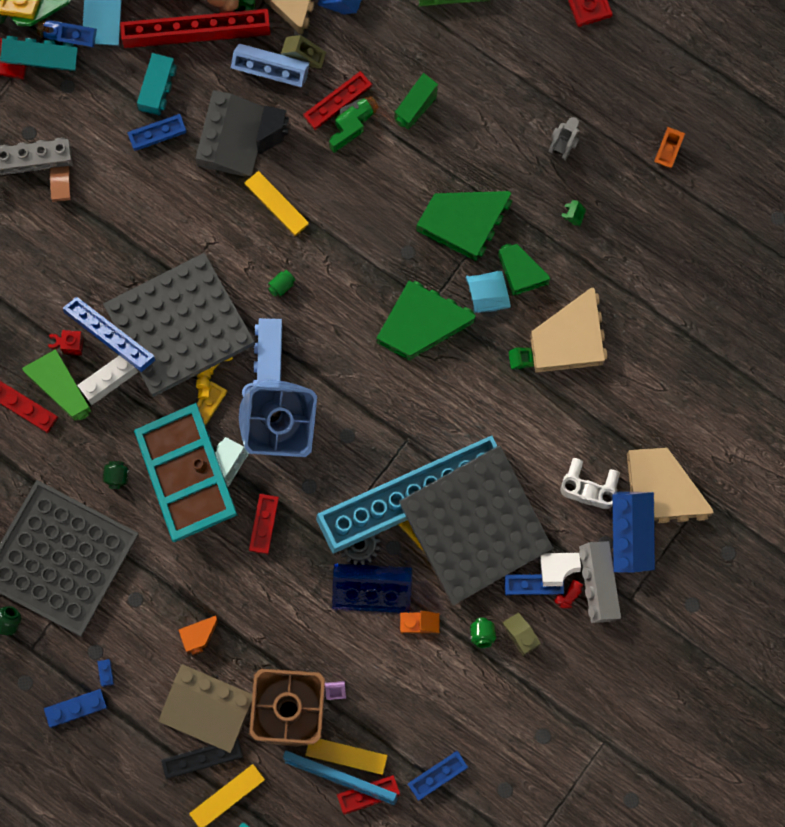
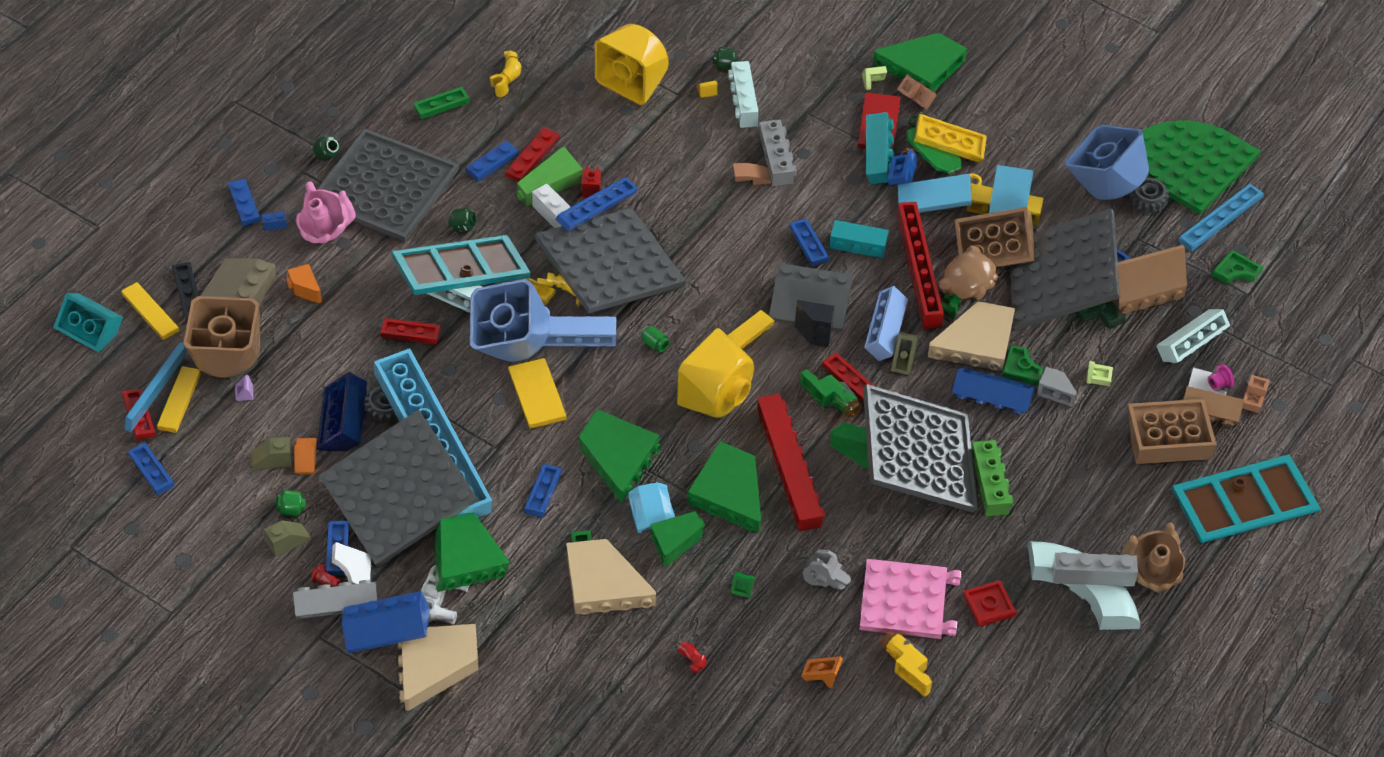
camera: 90 degrees right, 25 degrees down
(27, 446) = (492, 161): none -> blue plate
(114, 617) = (324, 215): none -> bright pink piece
(348, 398) = (537, 393): none -> yellow tile
(349, 221) = (715, 376): none -> yellow piece
(421, 655) = (272, 454): none -> olive slope
(434, 43) = (919, 448): none -> dark grey plate
(434, 164) = (789, 462): none -> red brick
(462, 393) = (542, 490): none -> blue tile
(552, 461) = (466, 553): none -> green slope
(585, 74) = (906, 599): none -> bright pink plate
(651, 260) = (692, 654): none -> red arm
(655, 74) = (909, 661): none -> yellow plate

